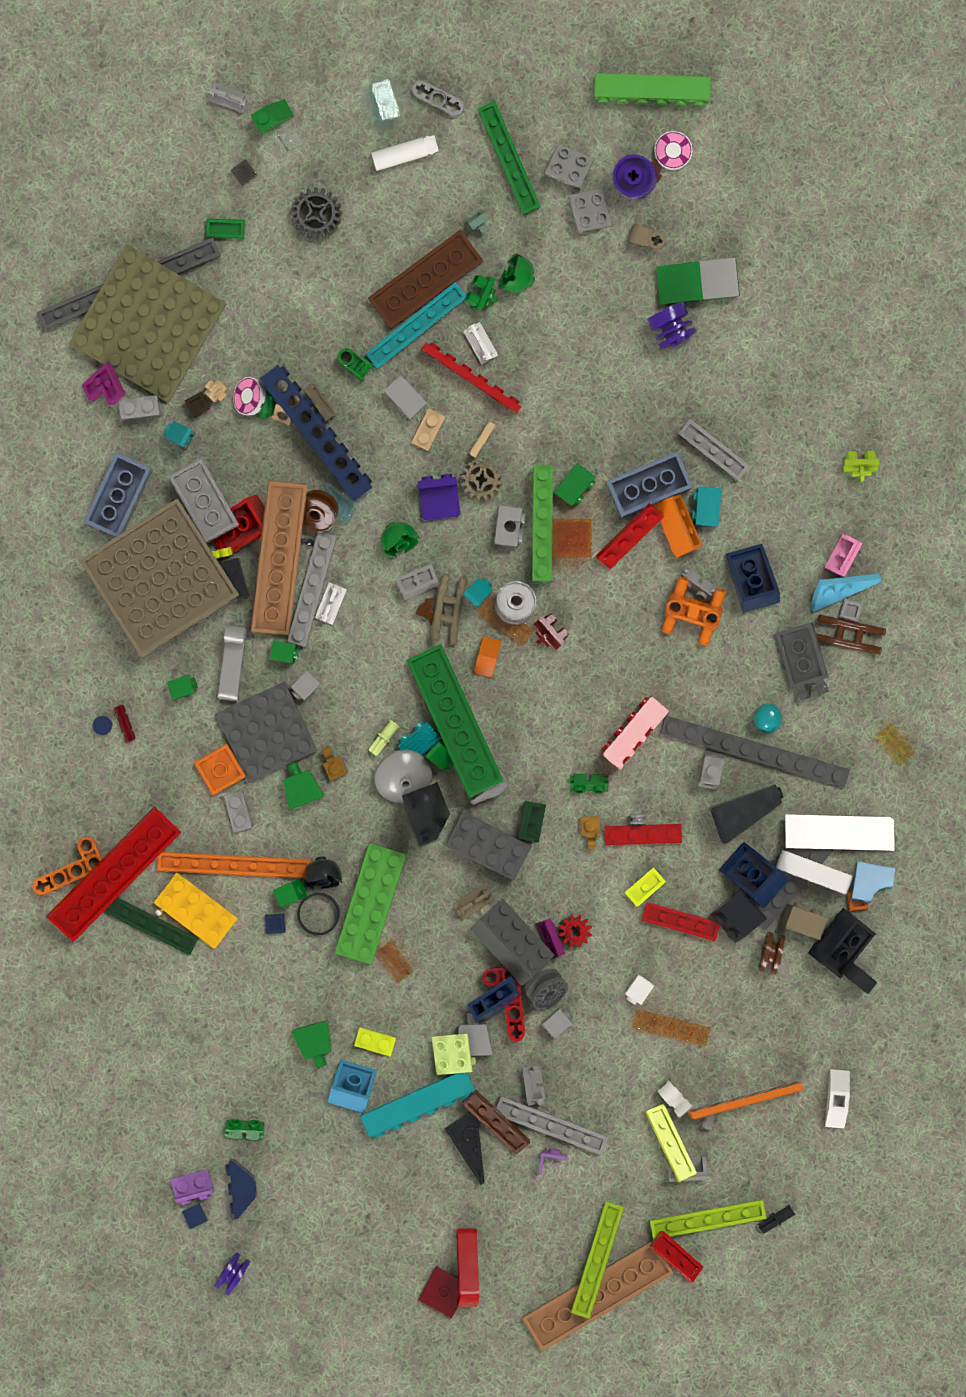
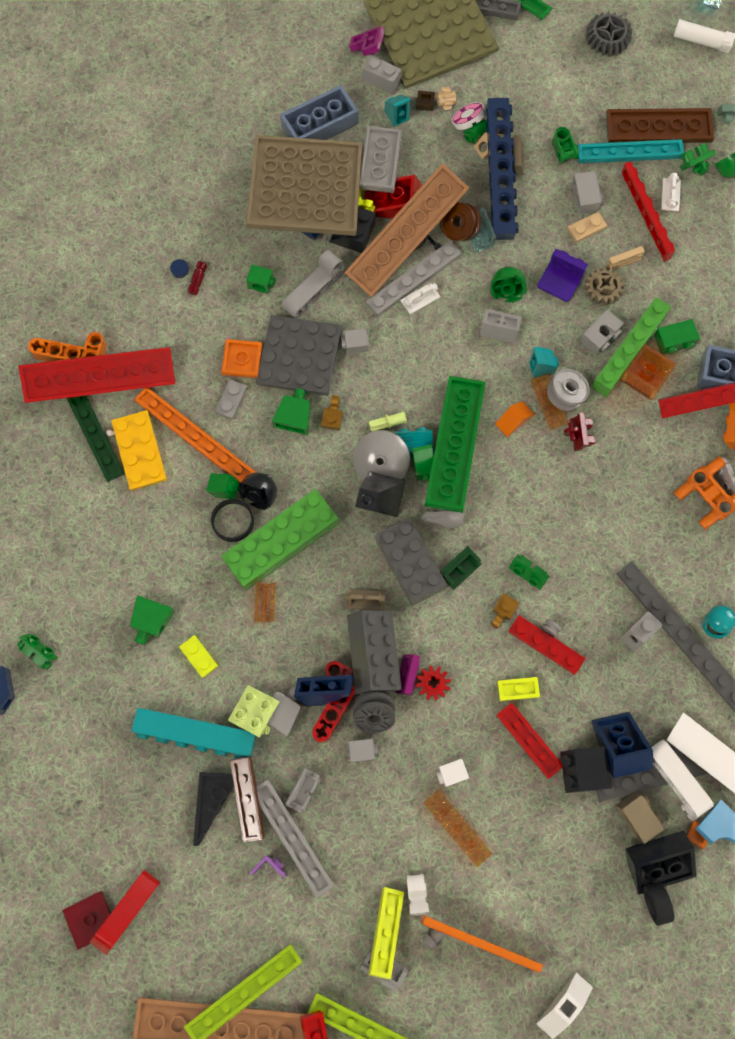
camera: 40 degrees right, 15 degrees down
(275, 923) = (192, 504): dark blue tile -> none
(284, 651) = (357, 305): green brick -> none
(352, 1086) = (150, 679): dark azure slope -> none
(425, 611) = (490, 350): reddish brown piece -> none
(441, 599) = (498, 361): dark tan piece -> none
(635, 732) = (596, 555): wedge -> none
(741, 812) = (645, 682): black slope -> none
(771, 953) = (593, 824): reddish brown wheel -> none

